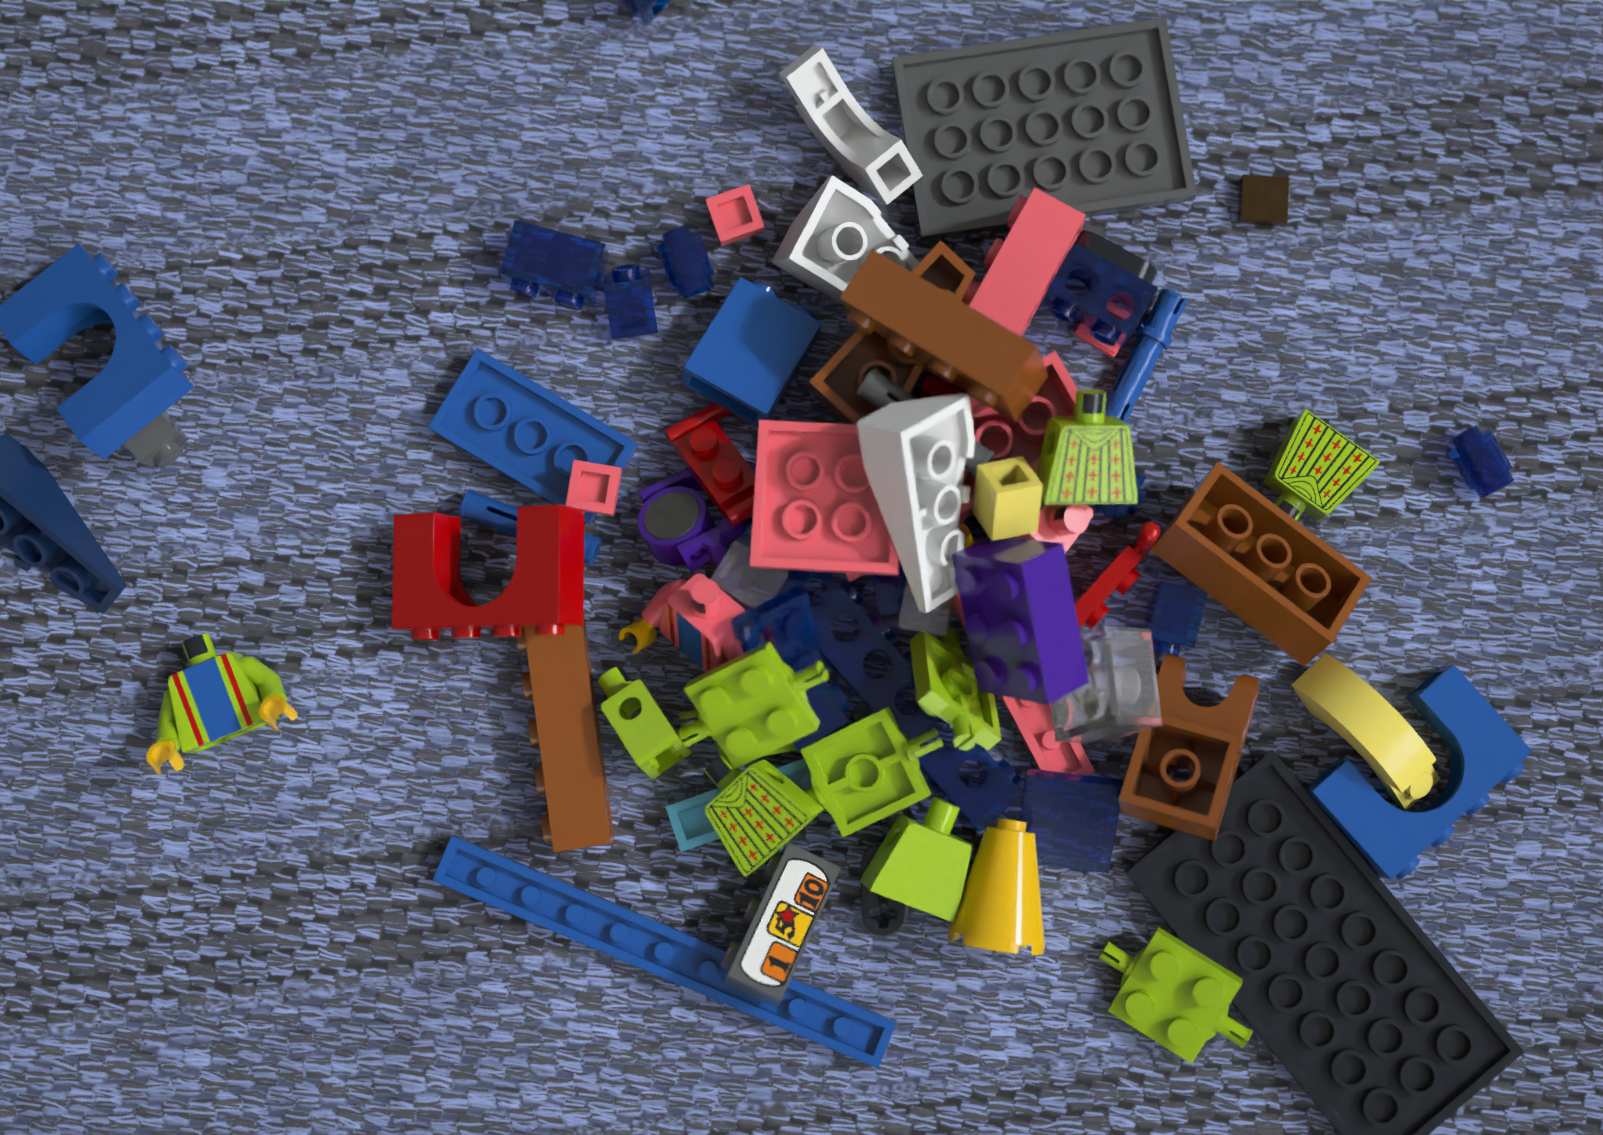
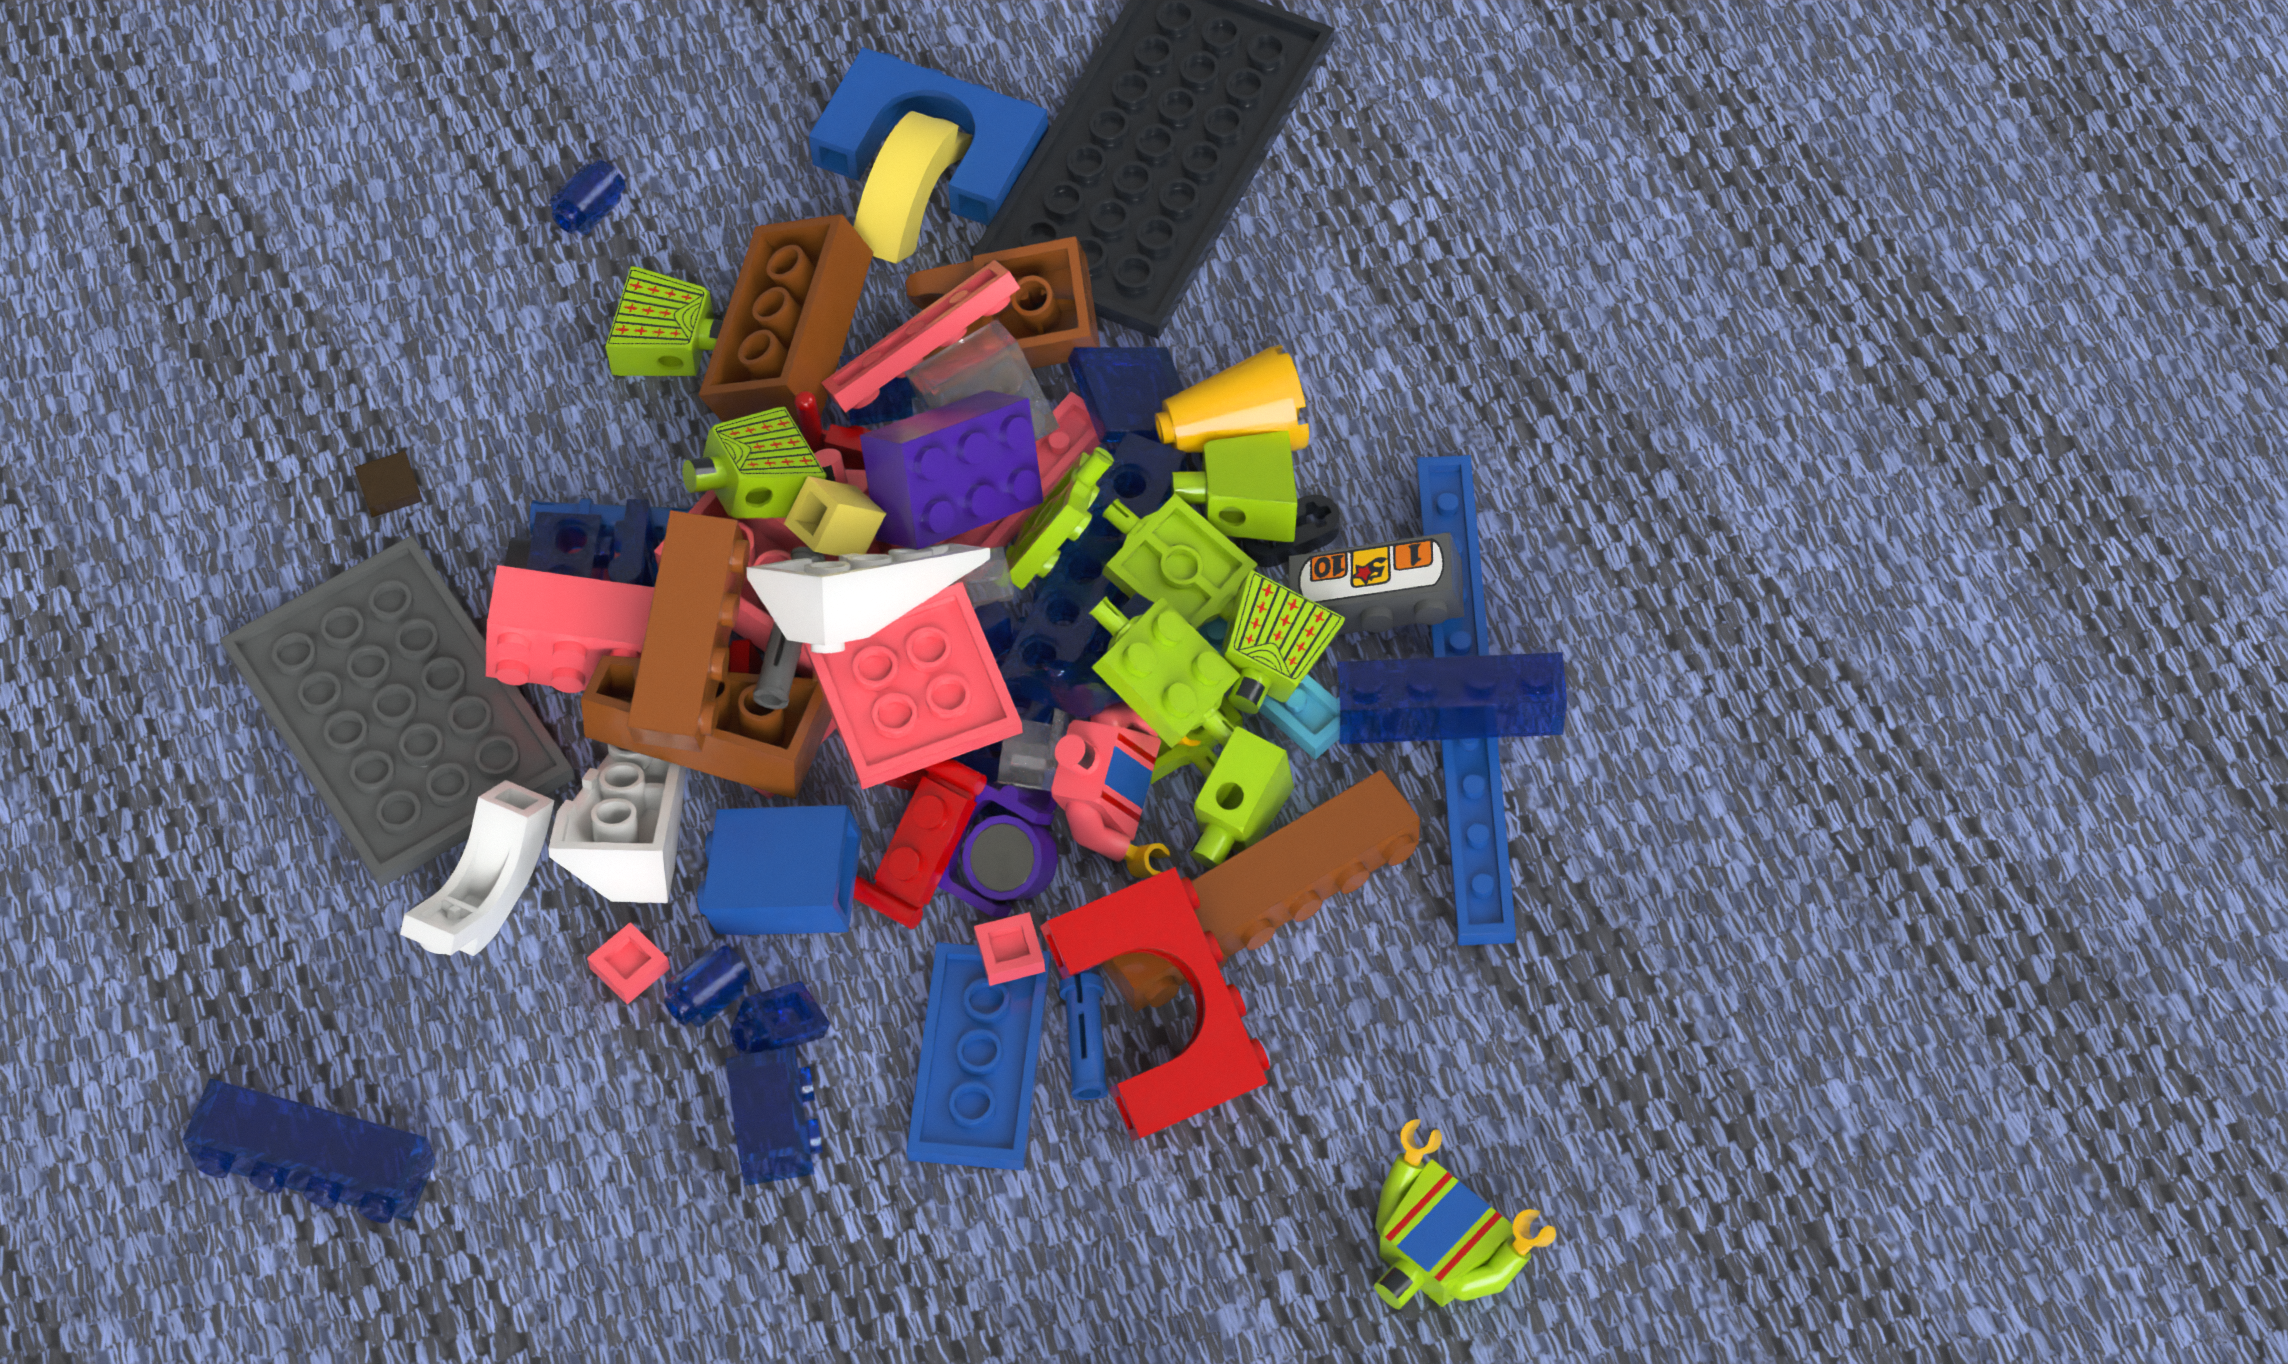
camera: 110 degrees left, 25 degrees down
(640, 929) = (1451, 698): none -> clear blue brick
(1082, 354) = (636, 542): none -> clear blue plate
(1175, 995) = (1255, 244): lime plate -> none
(1179, 658) = (933, 327): none -> coral plate

